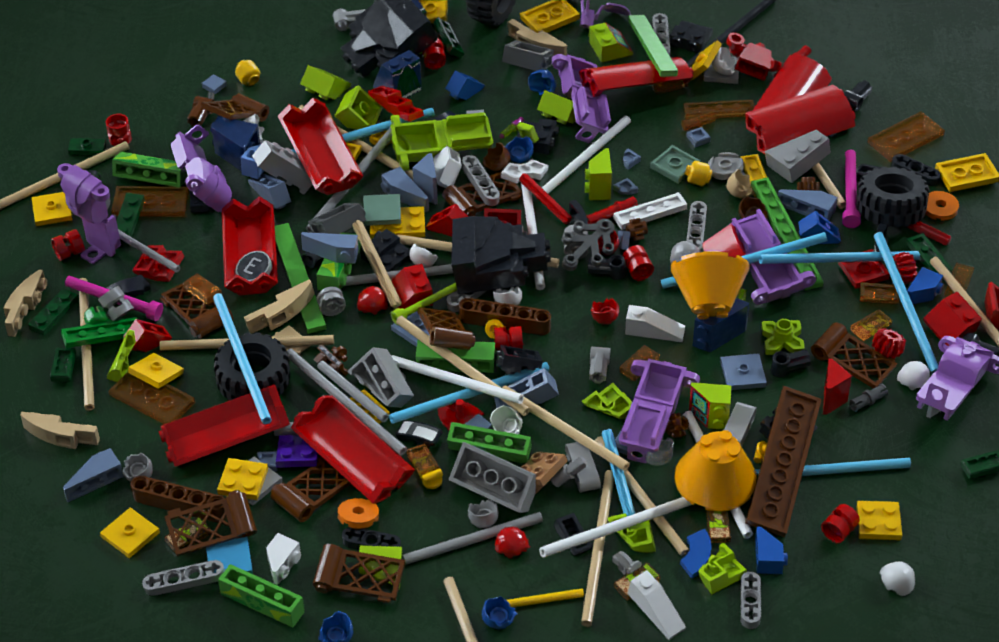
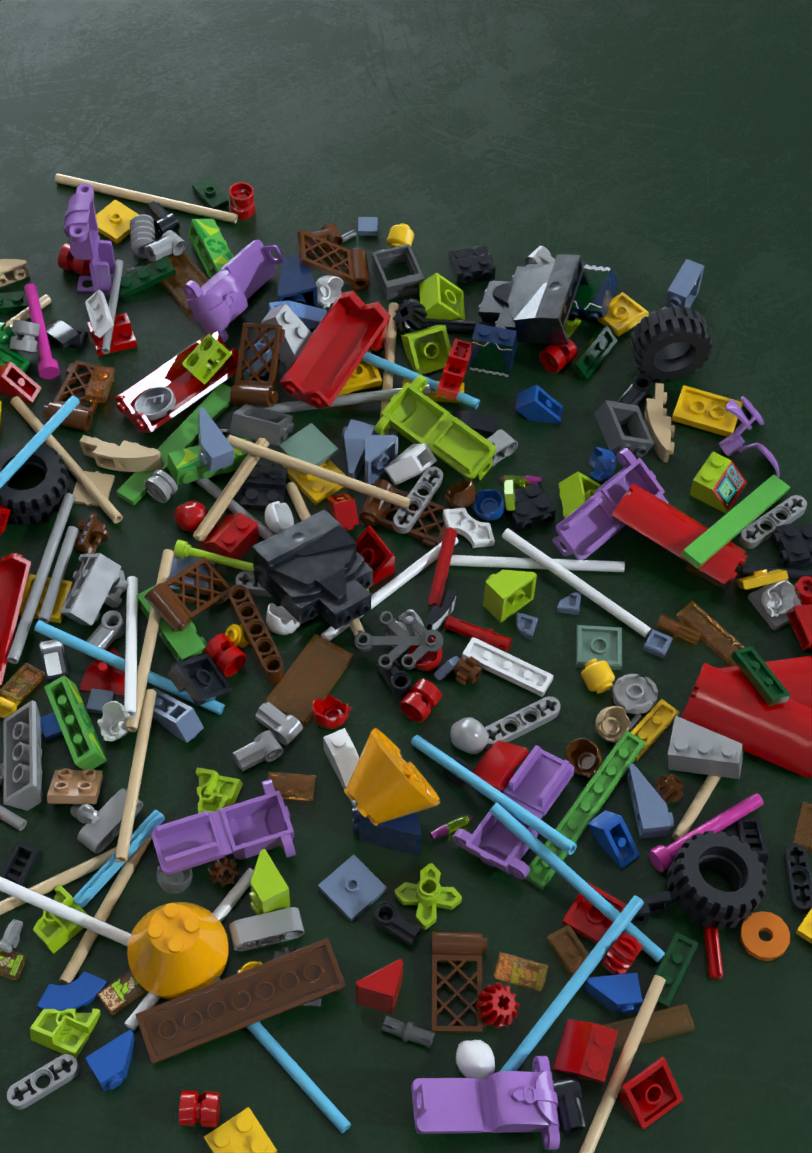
camera: 50 degrees right, 10 degrees up
(117, 186) = (168, 244): none -> light grey piece
(137, 255) = (99, 313): none -> white tile
(252, 216) = (206, 358): none -> lime brick
(279, 79) = (401, 286): none -> dark grey window
(305, 208) = (257, 392): none -> reddish brown piece
(308, 52) = (472, 264): none -> black plate
(331, 98) = (410, 316): none -> black gear
(362, 81) = (455, 325): none -> black axle
(415, 208) = (319, 472): none -> tan piece
(424, 389) = (106, 634): none -> light grey piece
(501, 35) = (637, 391): none -> black piece
(567, 311) = (309, 678): none -> clear orange tile
(583, 342) = (283, 727): none -> light grey piece
(619, 144) = (576, 582): none -> white piece
(778, 94) = (760, 676): none -> dark green plate

